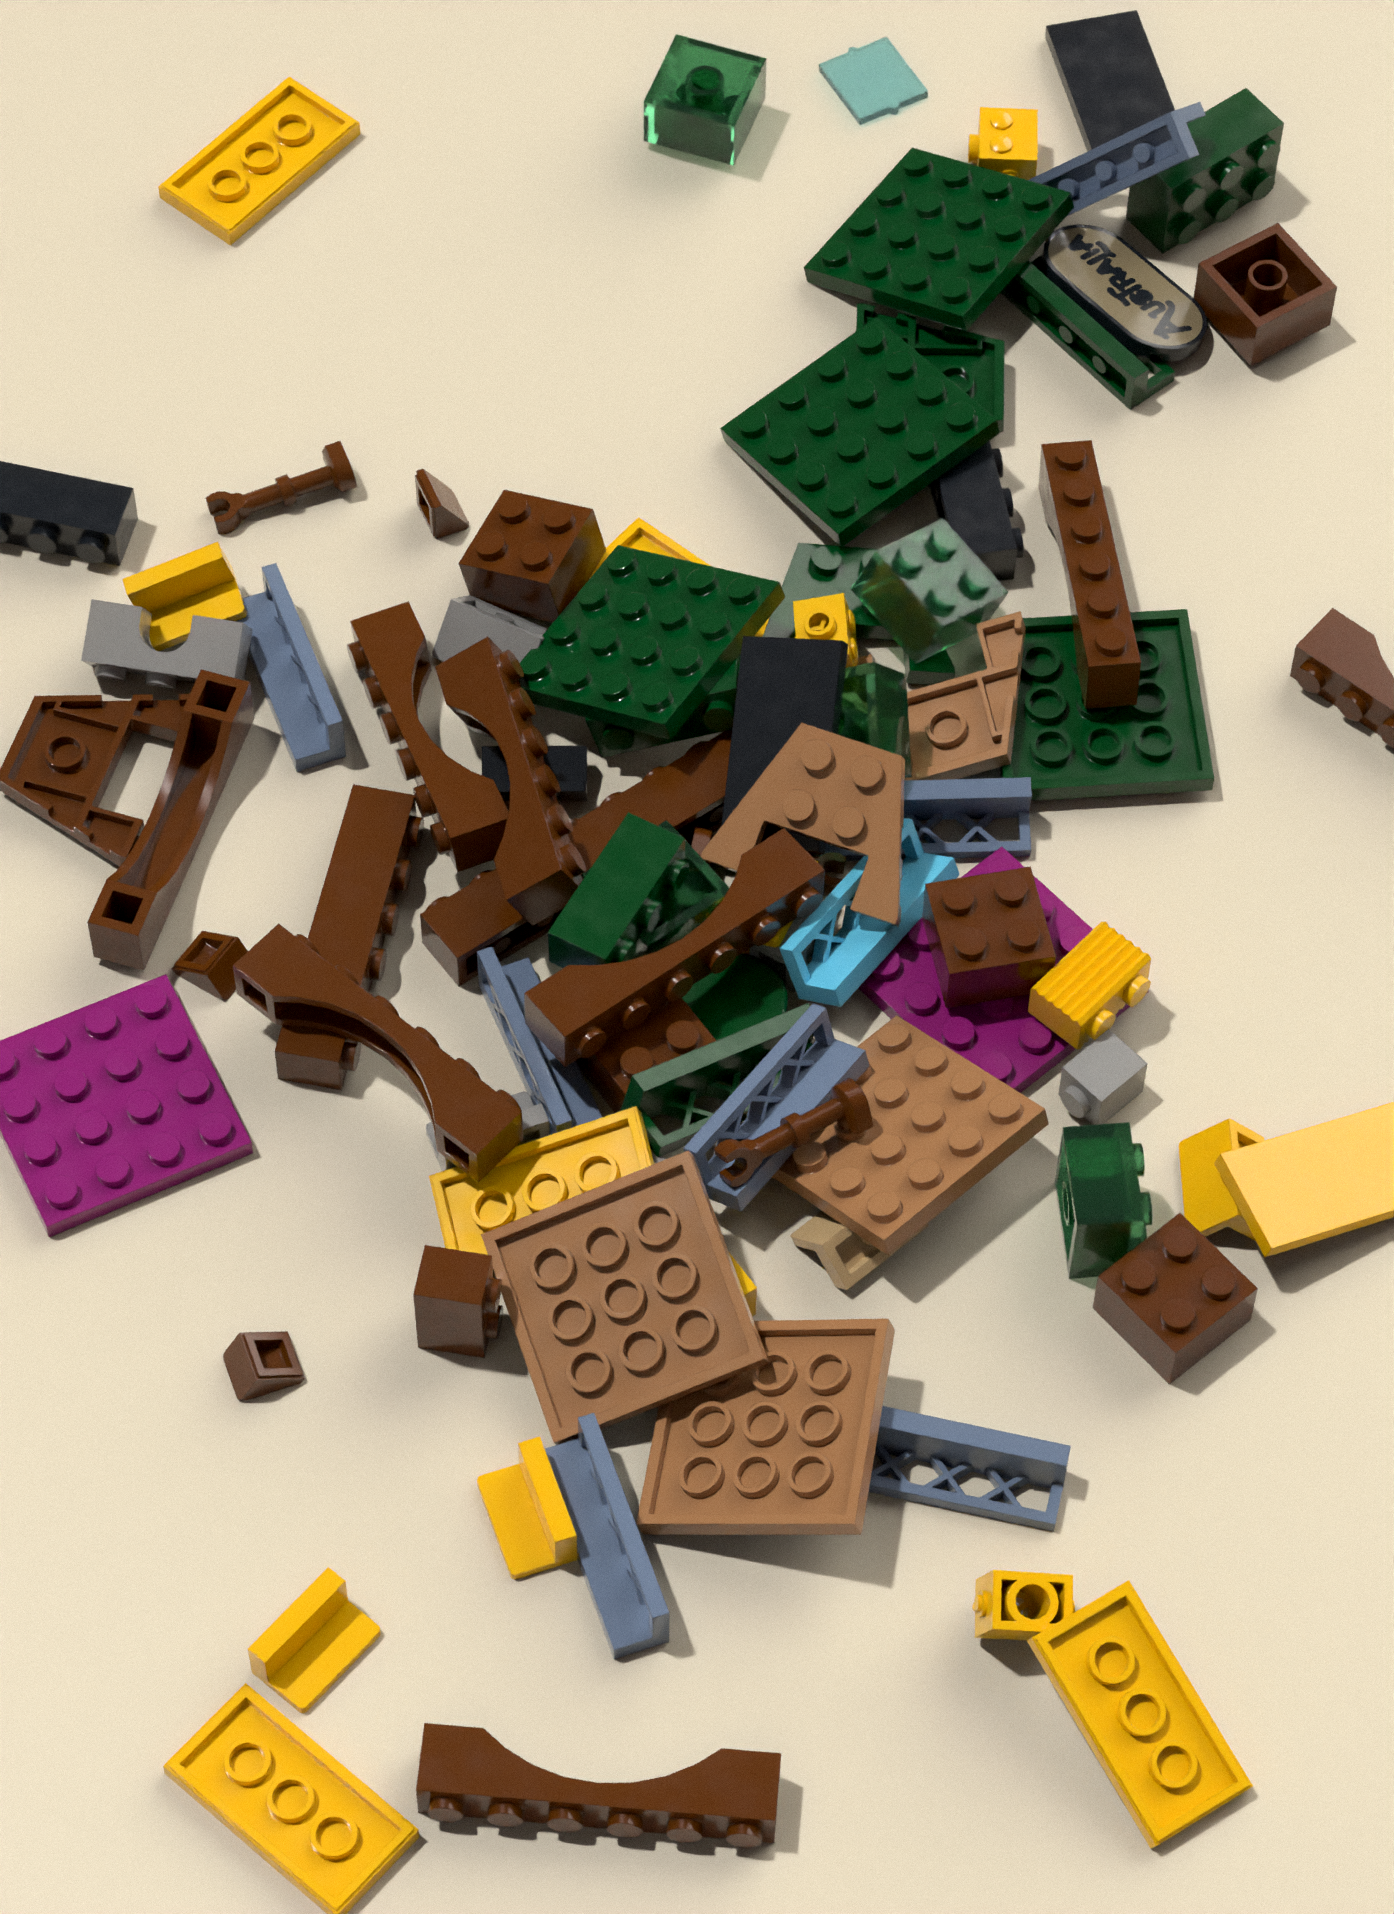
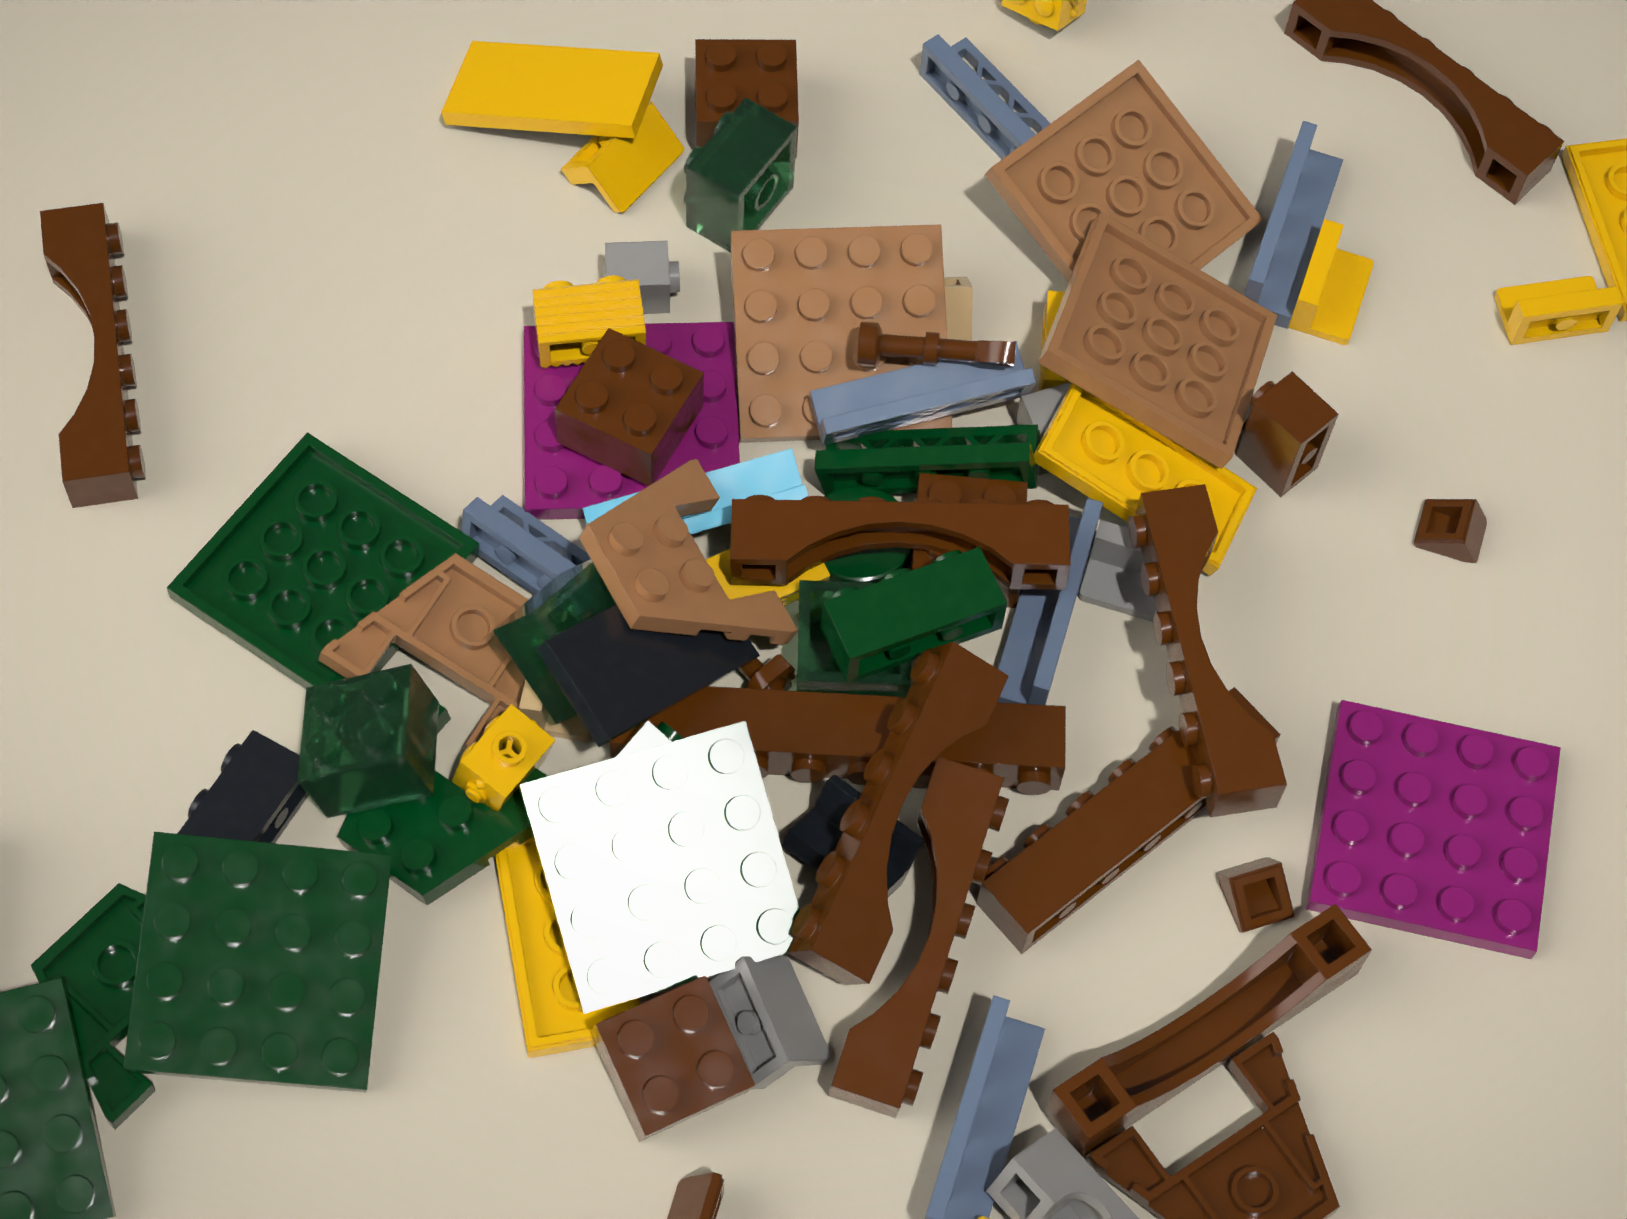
camera: 145 degrees left, 5 degrees up
(1099, 607) = (159, 733): reddish brown arch -> none

